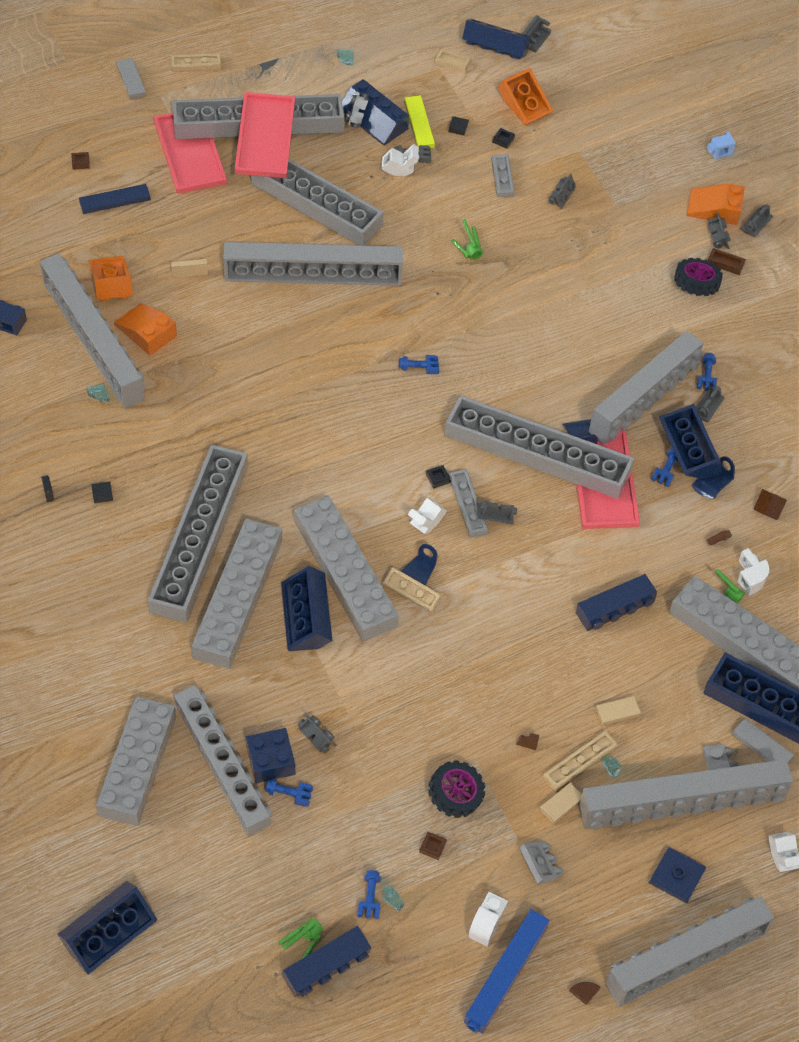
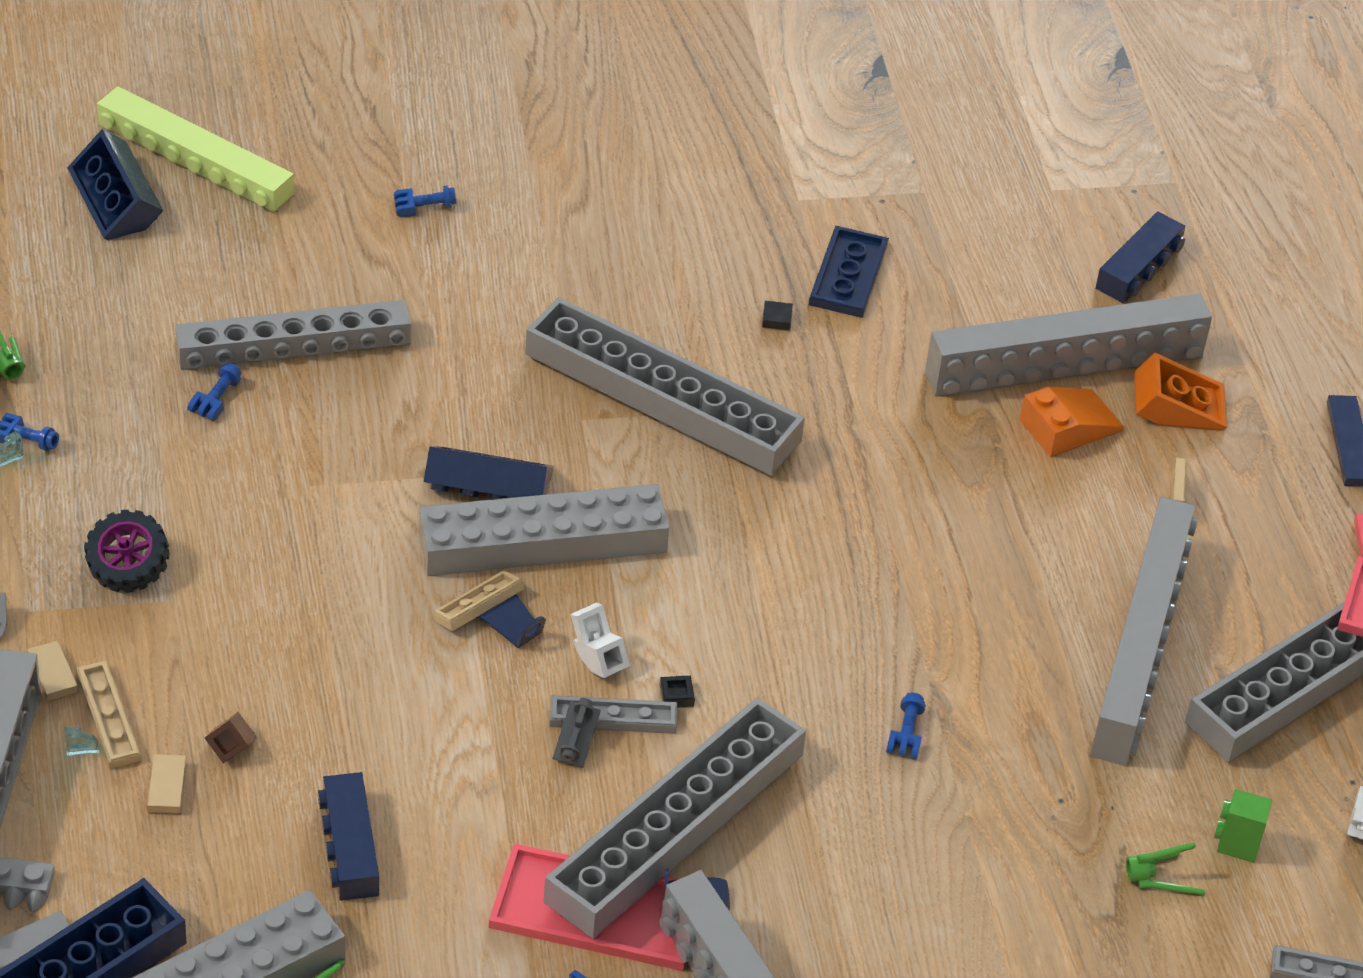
camera: 105 degrees right, 10 degrees down
(46, 889) = (195, 149): none -> yellowish green brick
(47, 488) = (797, 257): black tile -> none
(48, 707) = (406, 202): none -> blue hinge
(57, 462) = (848, 271): none -> dark blue tile
(136, 761) = (327, 254): light grey brick -> none
(237, 594) = (548, 406): light grey brick -> none
(270, 755) = (274, 379): dark blue brick -> none
(323, 737) = (290, 440): dark grey hinge -> none
(433, 846) = (63, 516): reddish brown tile -> none
(435, 206) = (1243, 825): none -> bright green brick
(528, 741) = (164, 659): reddish brown tile -> none
(573, 685) = (230, 737): none -> reddish brown panel

